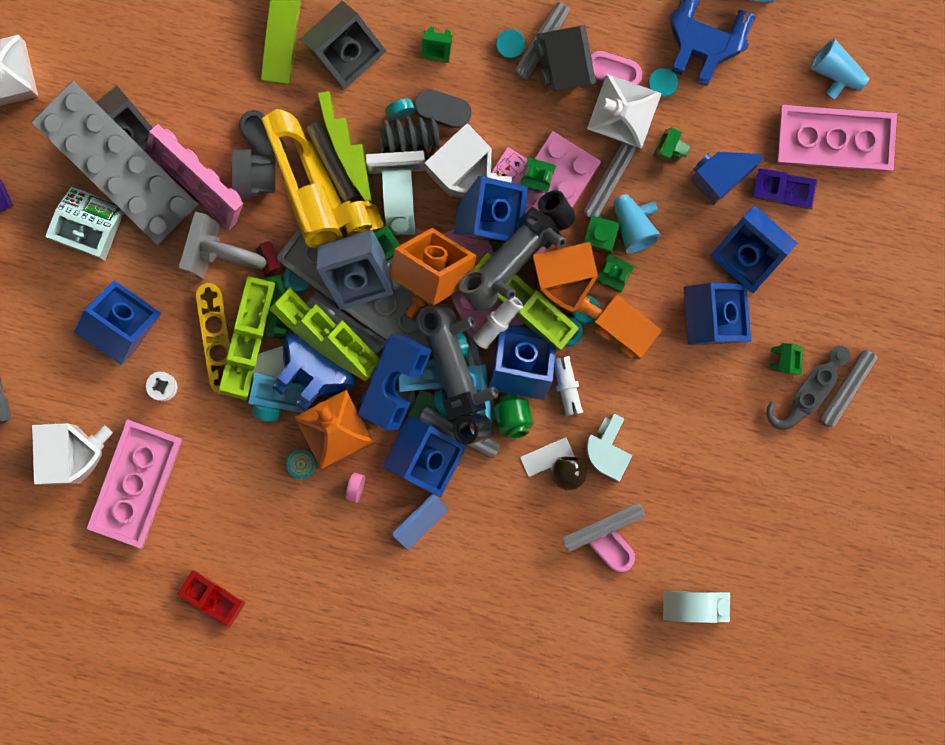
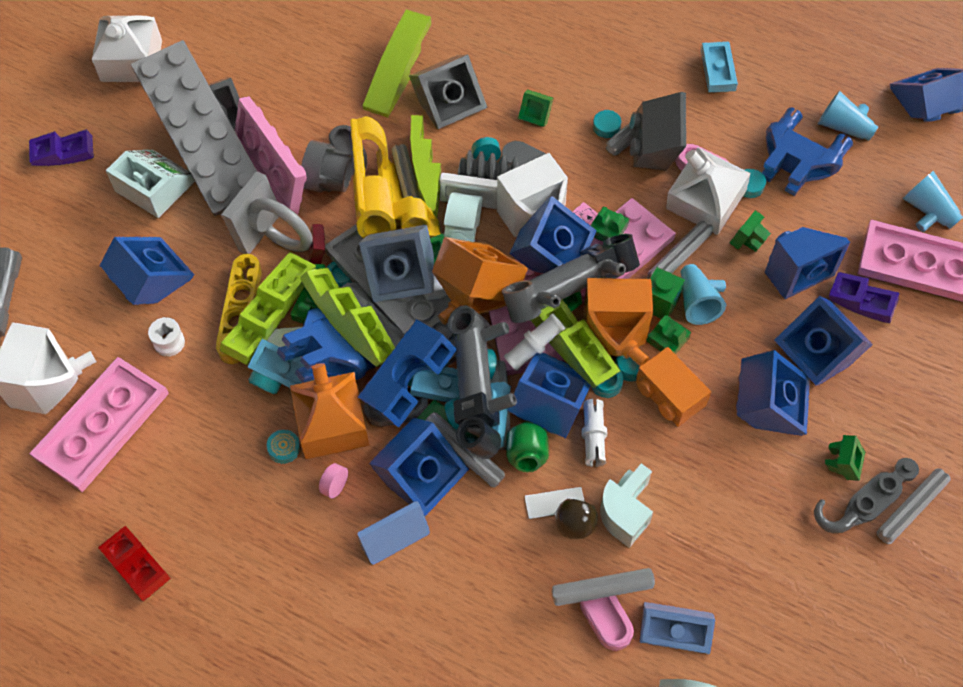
camera: 15 degrees right, 25 degrees down
(669, 541) = (677, 627): none -> medium blue slope

